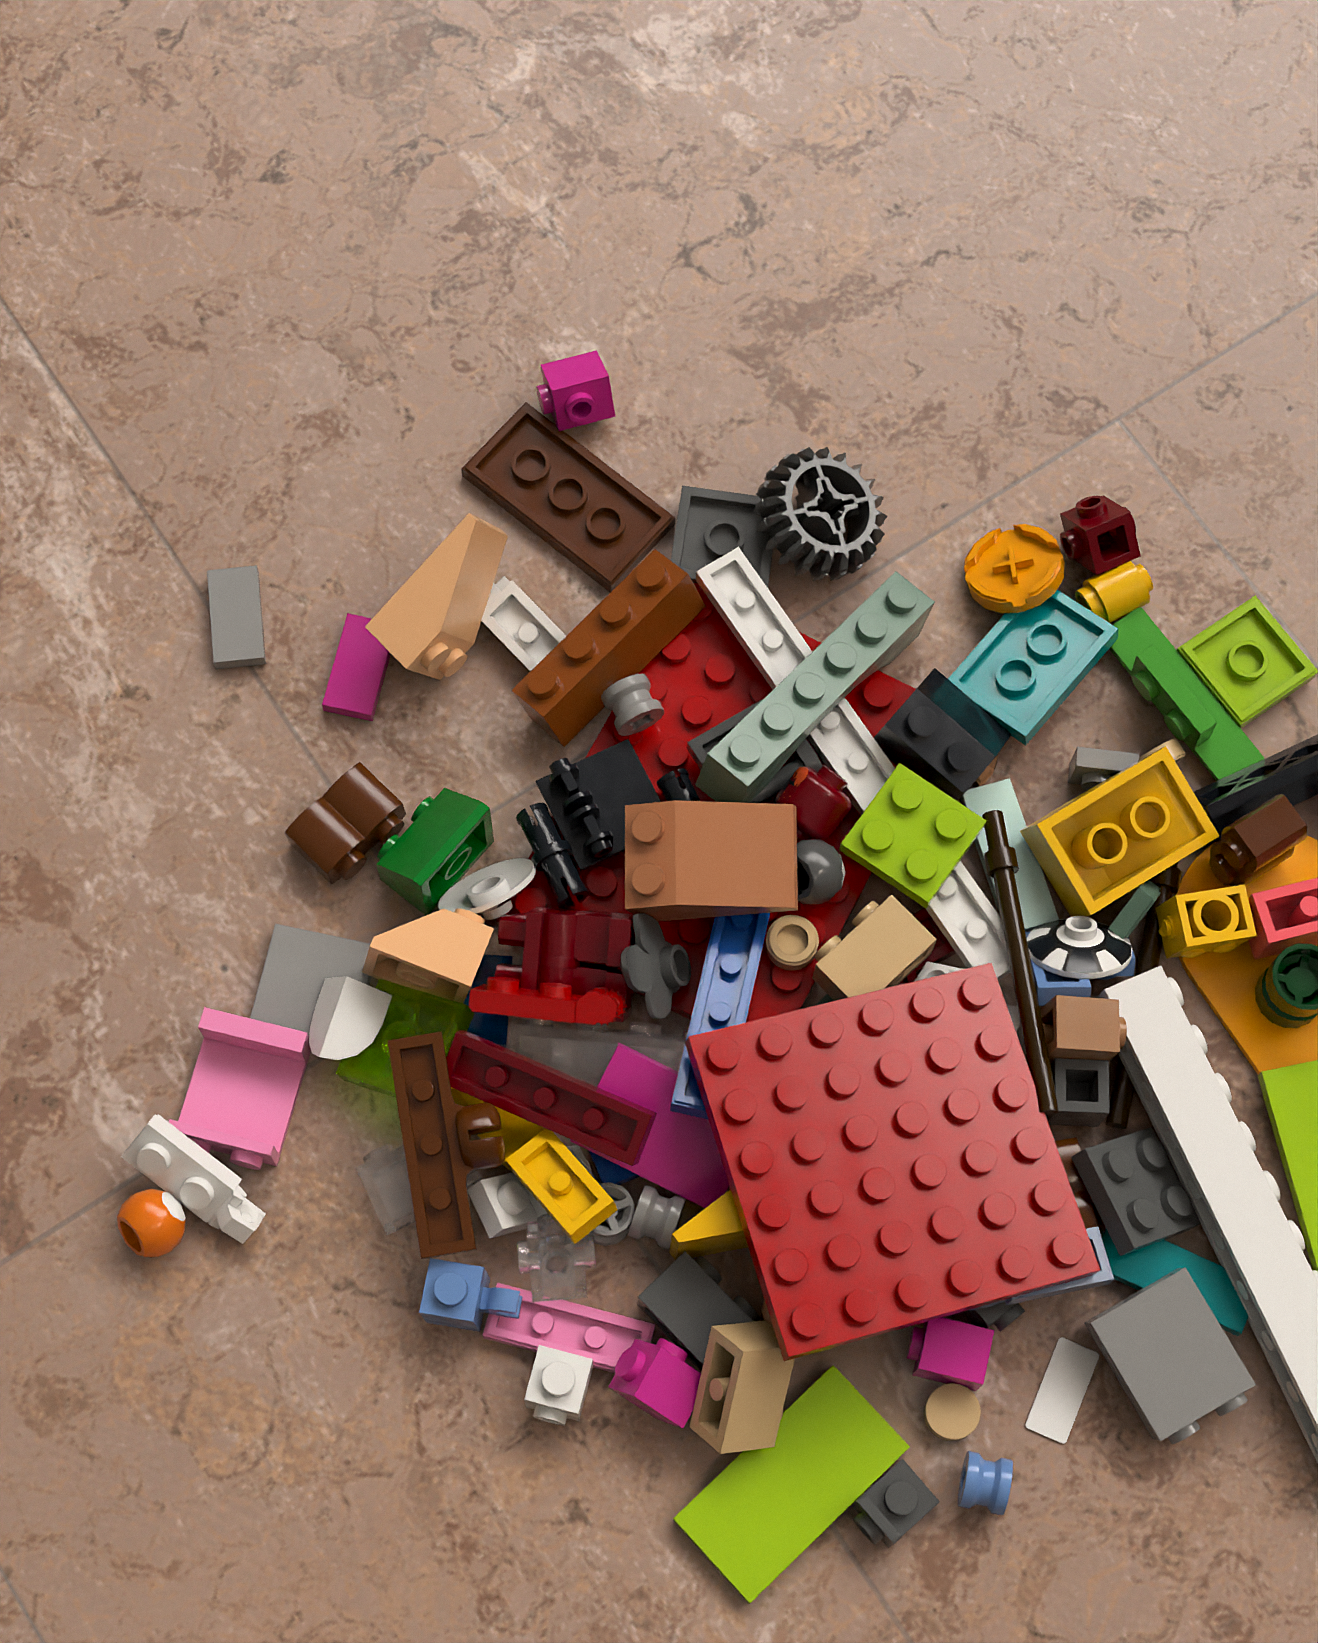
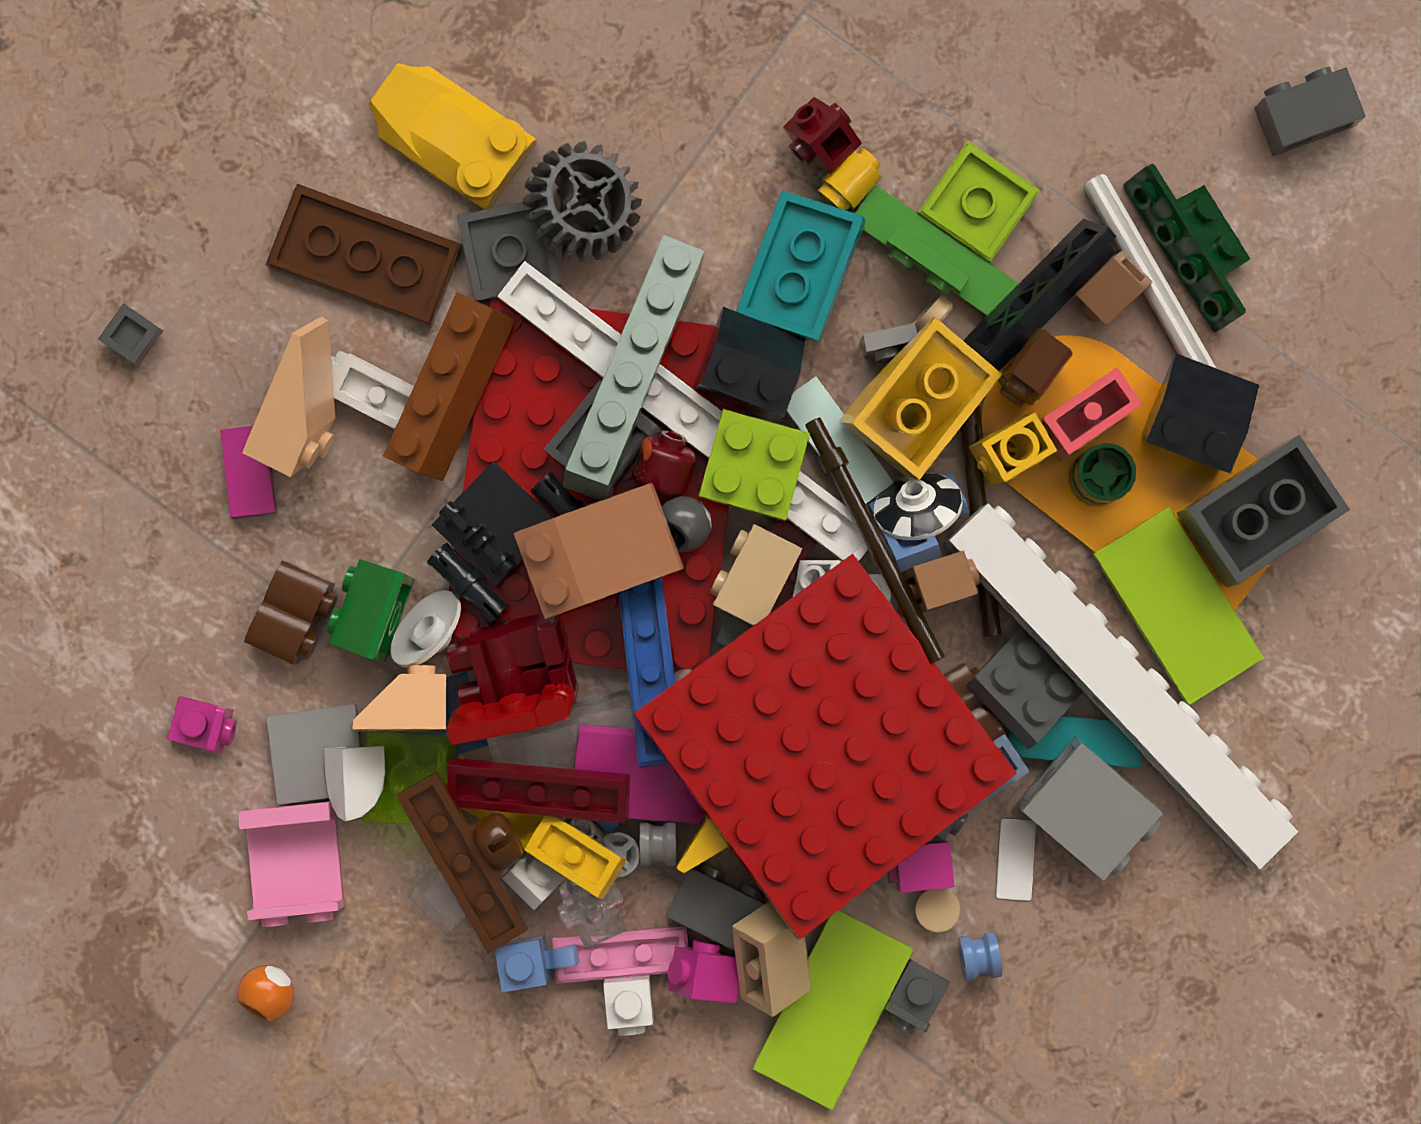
camera: 20 degrees left, 15 degrees up
(193, 1178) = (285, 948): white hinge -> none
(202, 909) = (202, 725): none -> dark pink bracket
(236, 617) = (129, 465): light grey tile -> none
(293, 488) = (130, 334): none -> dark grey plate
(576, 391) = (336, 161): dark pink brick -> none
(632, 704) = (486, 432): light grey wheel -> none
(654, 966) = (584, 651): dark grey plate -> none
(704, 408) = (449, 133): none -> yellow slope
(791, 942) = (687, 586): tan tile -> none
(1014, 569) = (760, 189): light orange tile -> none
(1080, 1092) = (955, 625): dark grey brick -> none
(1135, 909) = (953, 457): sand green tile -> none

